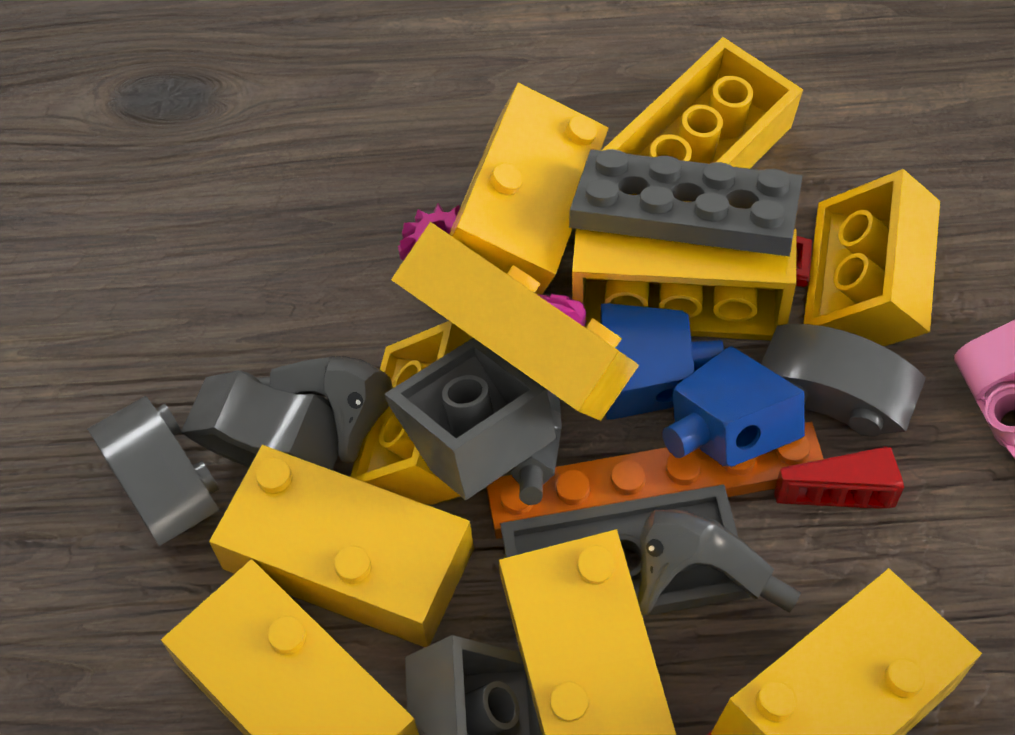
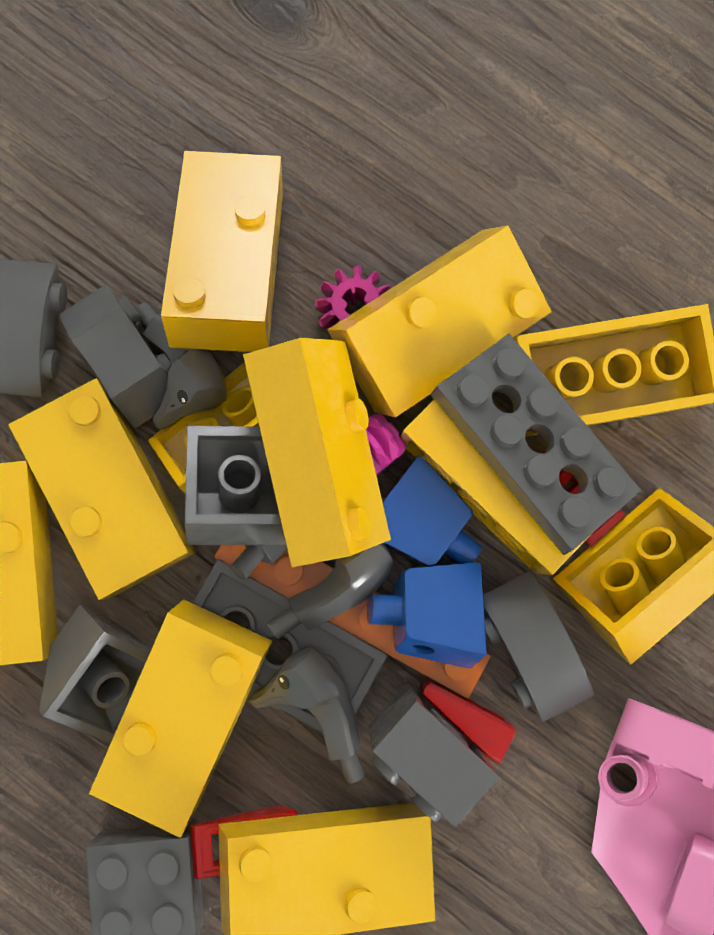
camera: 30 degrees right, 25 degrees up
(299, 271) = (223, 252): none -> yellow brick
(635, 431) = (343, 589): none -> dark grey animal
(835, 502) = (430, 755): none -> dark grey brick

